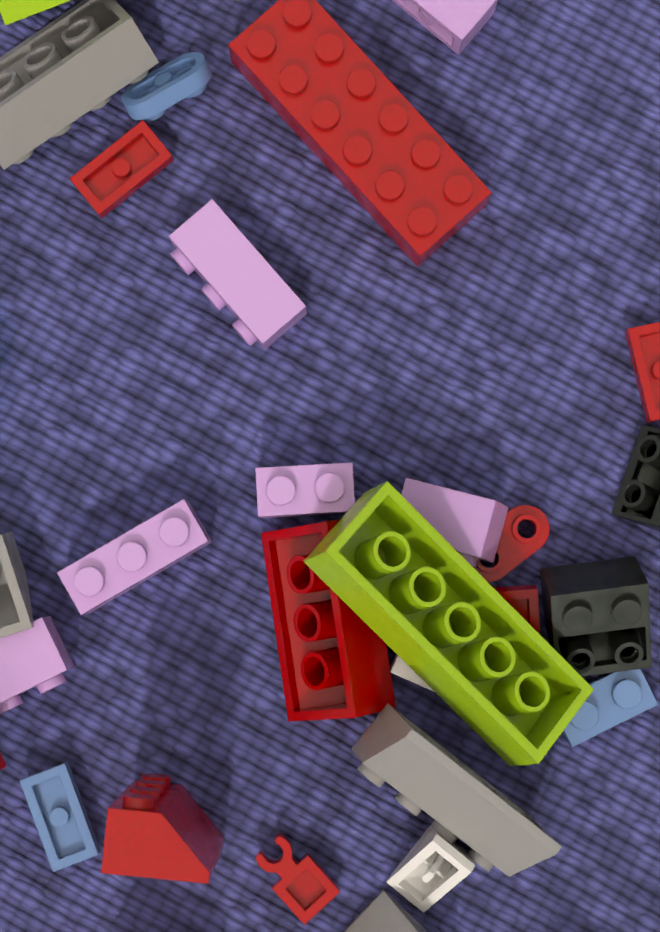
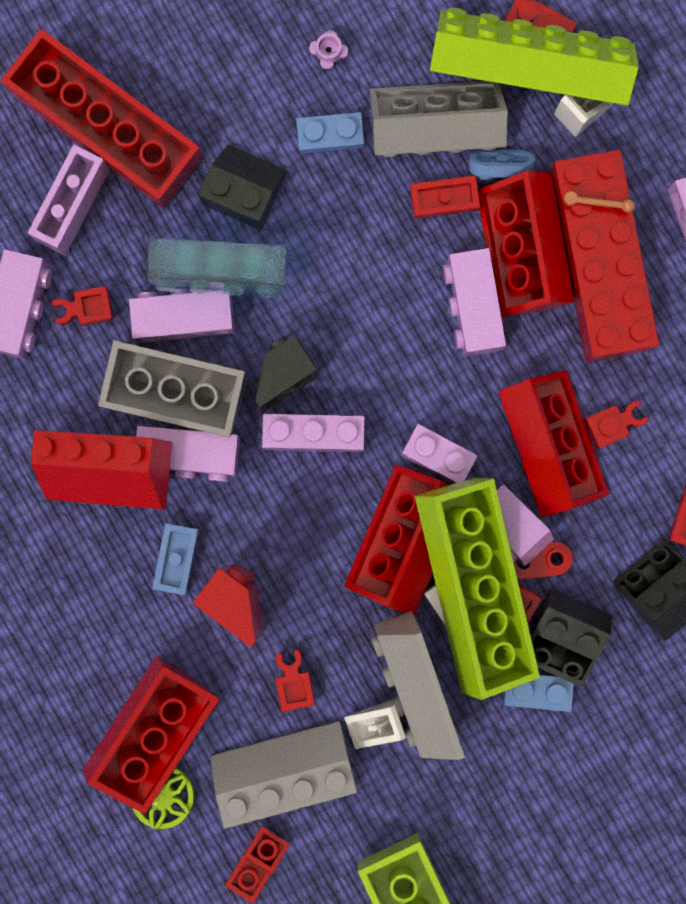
camera: 30 degrees right, 0 degrees up
(51, 508) = (283, 372): none -> pearl dark grey slope
(255, 167) = (525, 244): none -> red slope
(275, 77) = (571, 199): none -> nougat hinge
(437, 389) = (553, 443): none -> red slope
(493, 324) = (611, 425): none -> red plate

